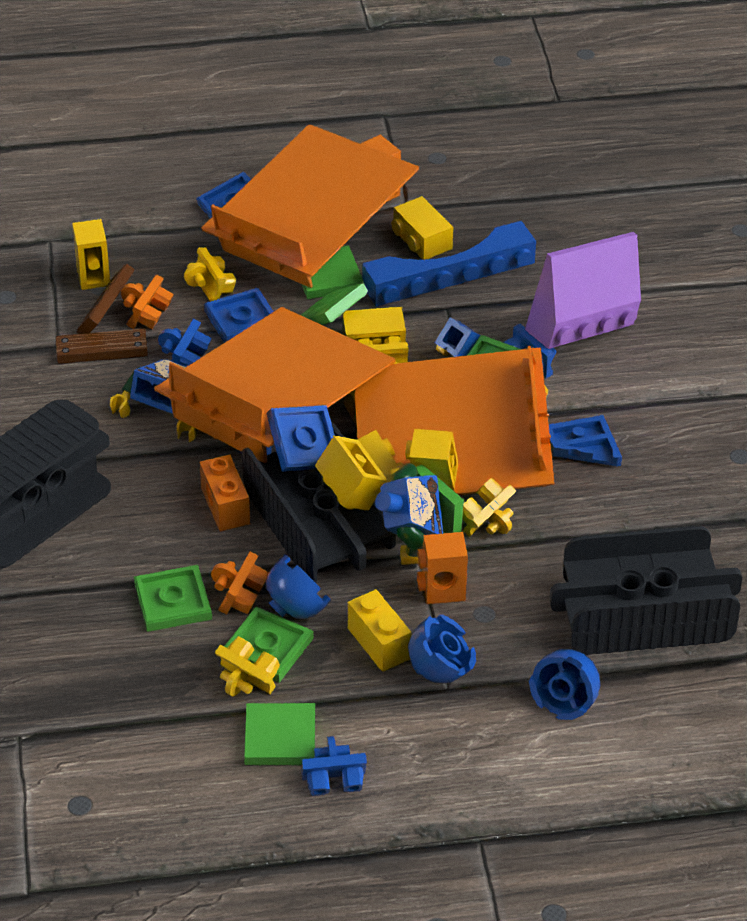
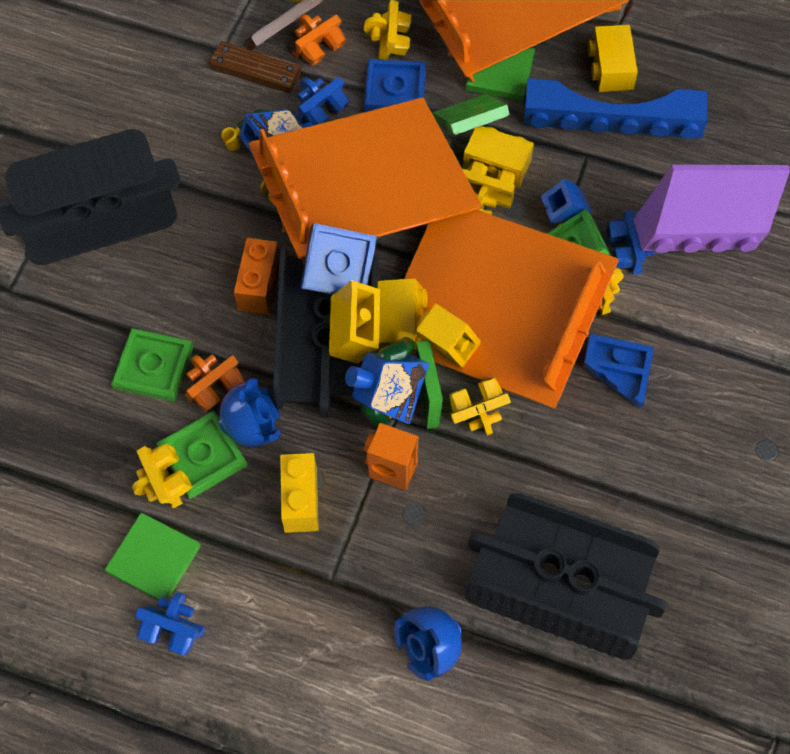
camera: 30 degrees right, 20 degrees up
(440, 650) = (336, 547): blue cylinder -> none

